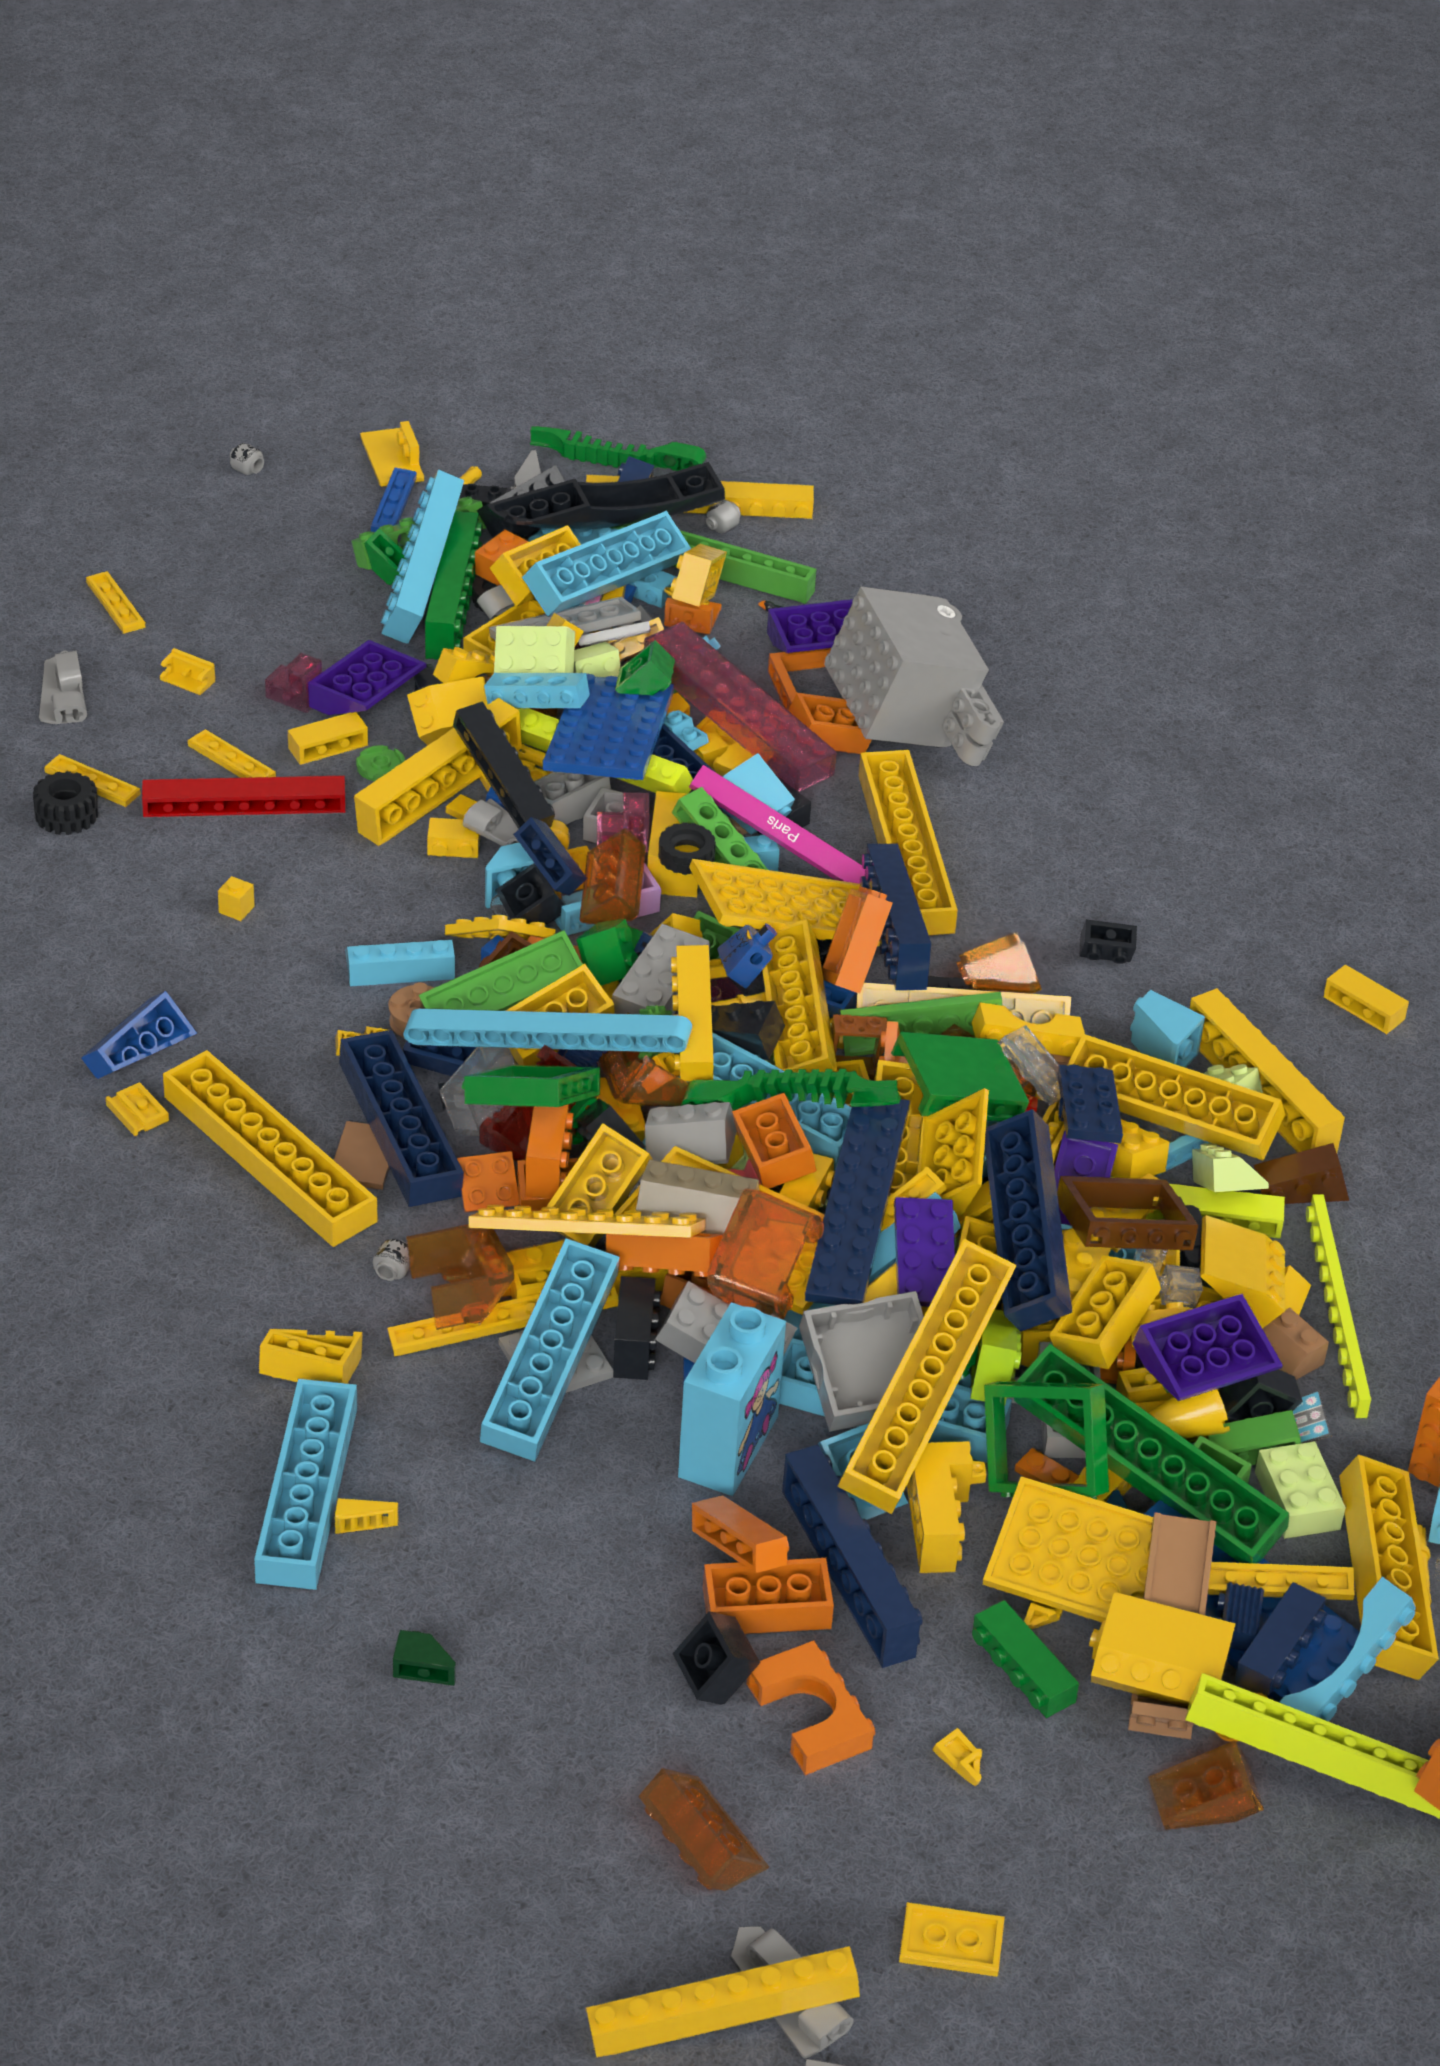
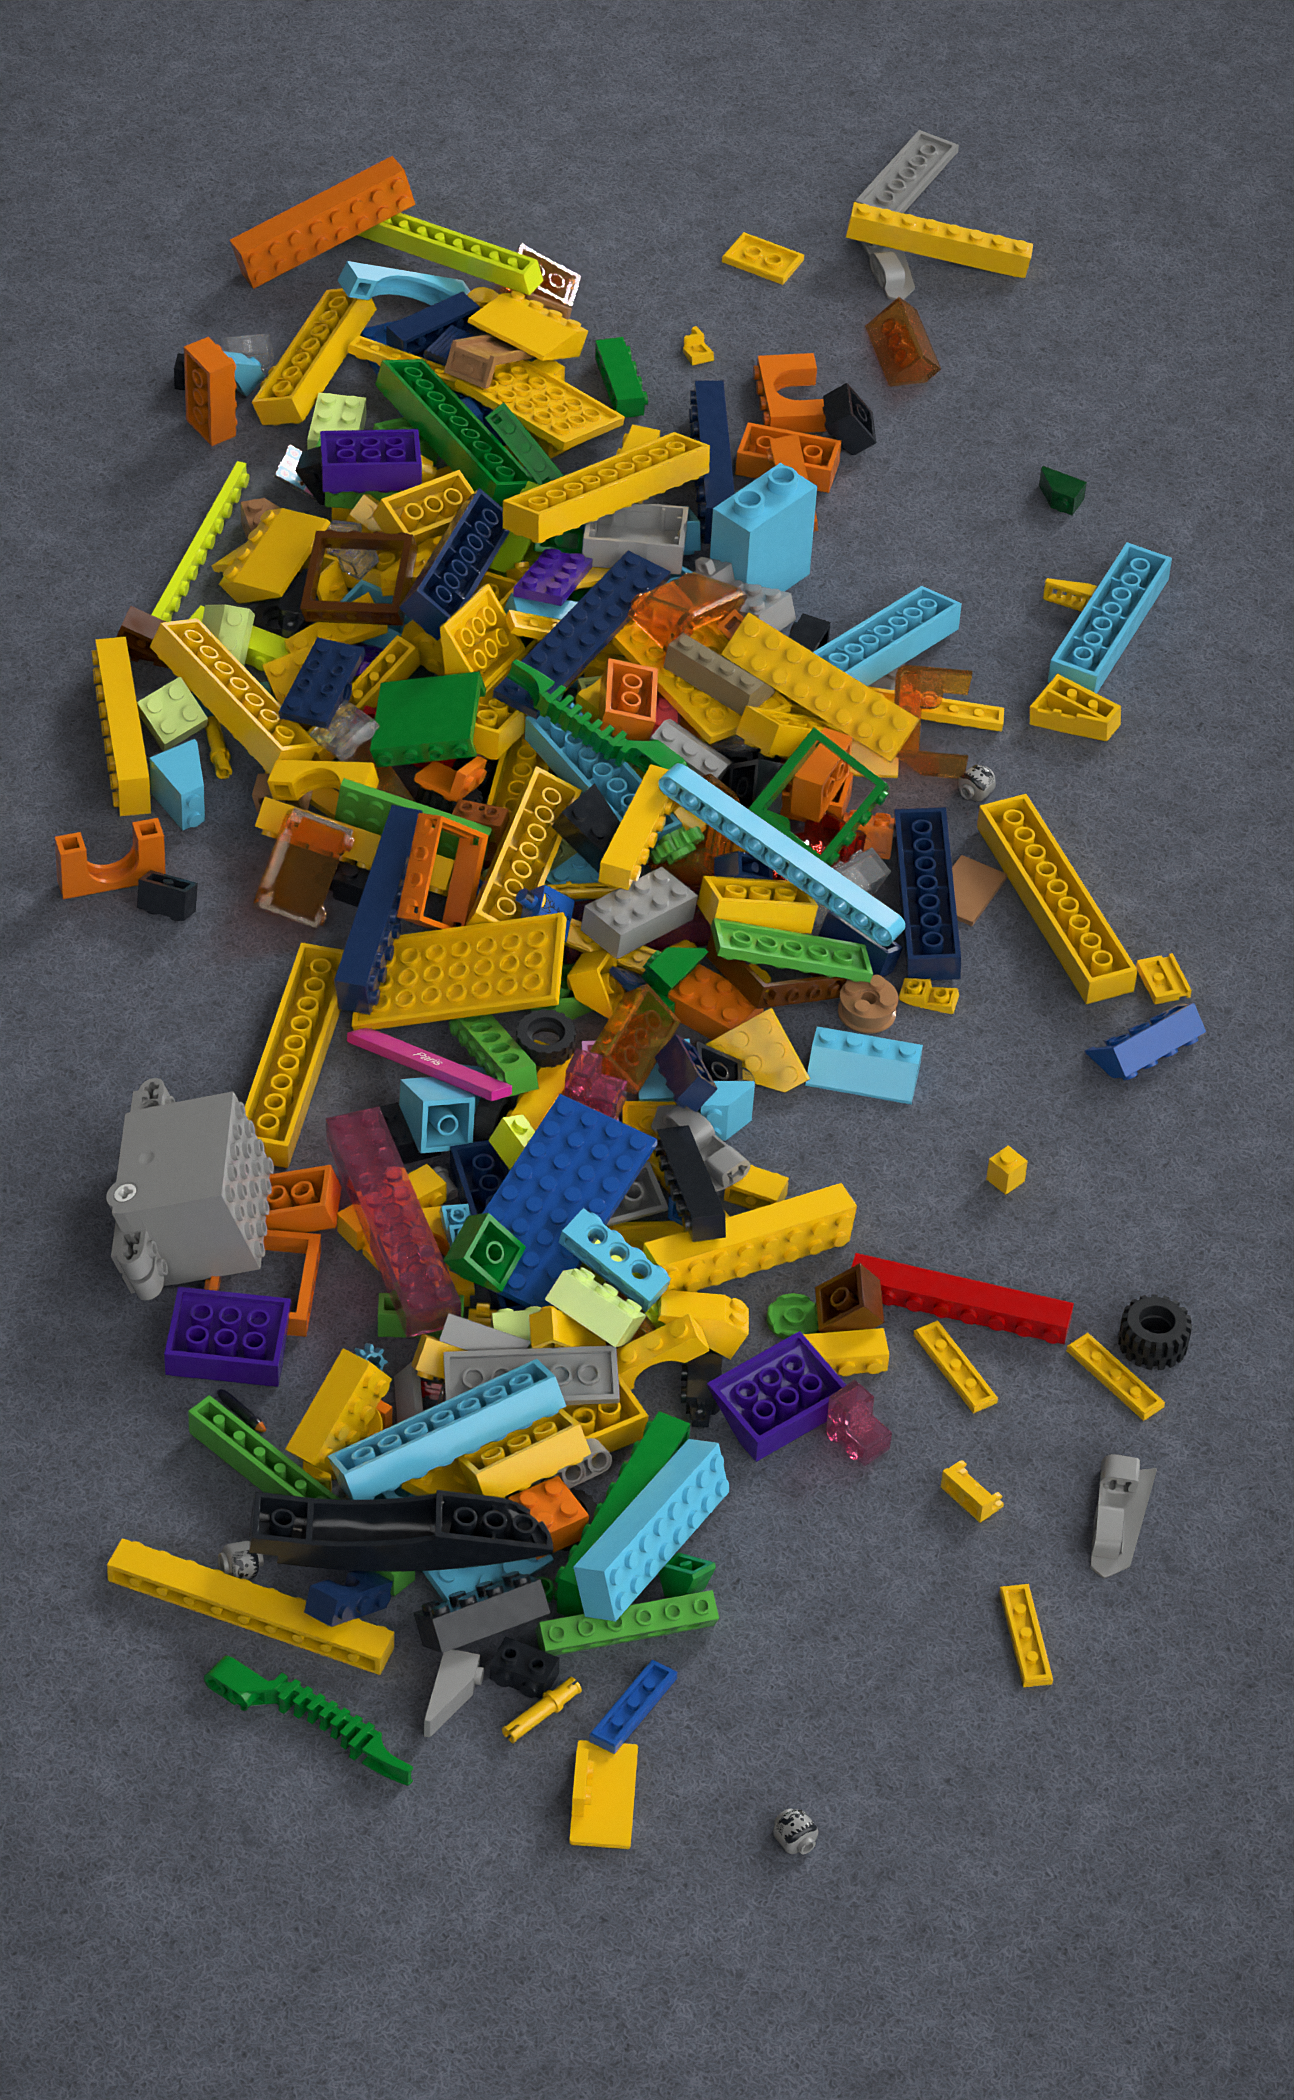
camera: 160 degrees left, 5 degrees up
(334, 752) = (849, 1301): none -> reddish brown brick
(1148, 951) = (80, 877): none -> orange arch

